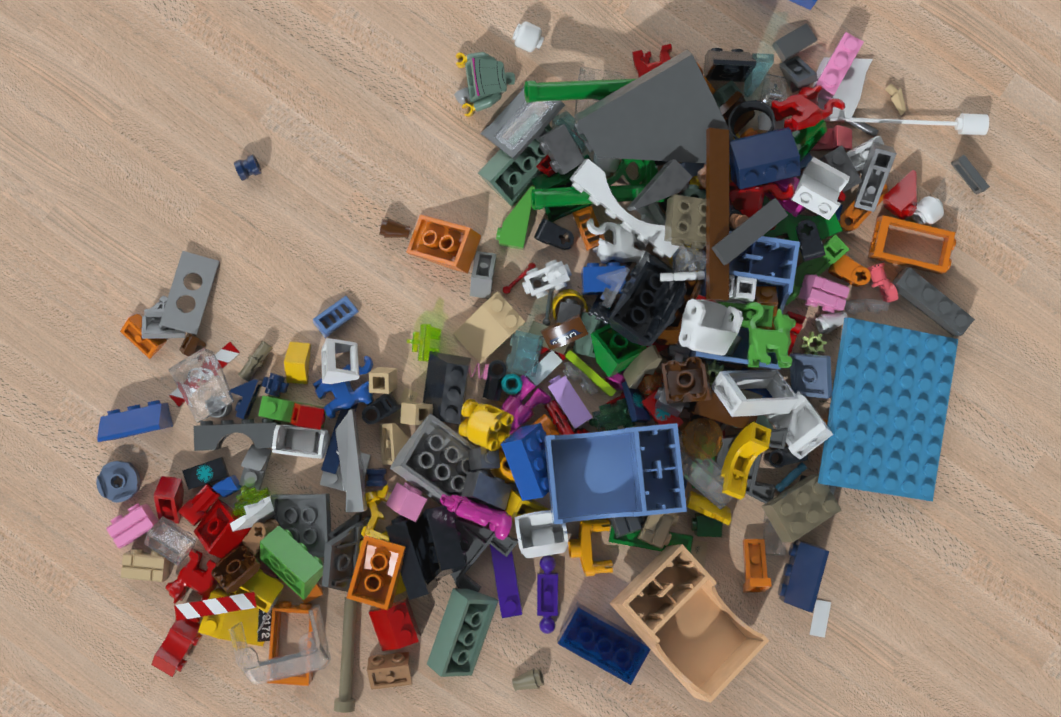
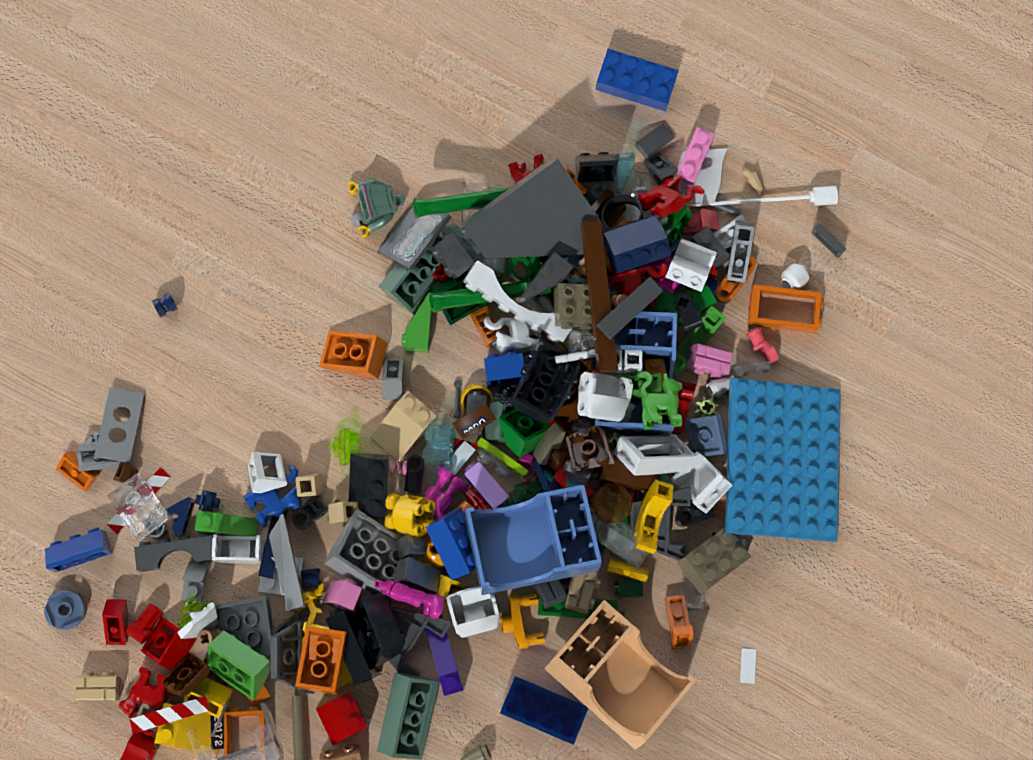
camera: 15 degrees left, 10 degrees down
(131, 526) = (81, 650): bright pink brick -> none
(170, 541) = (120, 659): clear brick -> none
(205, 473) = (147, 593): black tile -> none
(227, 486) = (170, 603): blue slope -> none
(255, 361) = (186, 481): dark tan pin -> none
(297, 362) = (226, 479): yellow slope -> none
(307, 416) = (241, 525): red brick -> none
(331, 310) = (253, 428): medium blue slope -> none
(392, 441) = (322, 542): tan slope -> none
(393, 229) = (305, 346): reddish brown cone -> none
(506, 289) = (416, 390): red hinge -> none
(518, 384) = (430, 469): teal cone -> none
(528, 36) = (412, 161): white head -> none
(547, 594) = (485, 671): dark purple plate -> none
(551, 233) = (452, 335): black piece -> none
(554, 275) = (458, 372): white brick -> none
(615, 280) = (514, 366): clear slope -> none
(791, 477) = (702, 535): dark azure wheel -> none
(803, 575) = (723, 622): dark blue slope -> none
(846, 268) = (728, 337): orange piece -> none
(902, 197) = (770, 266): red slope -> none
(932, 302) = (810, 358): dark grey brick -> none

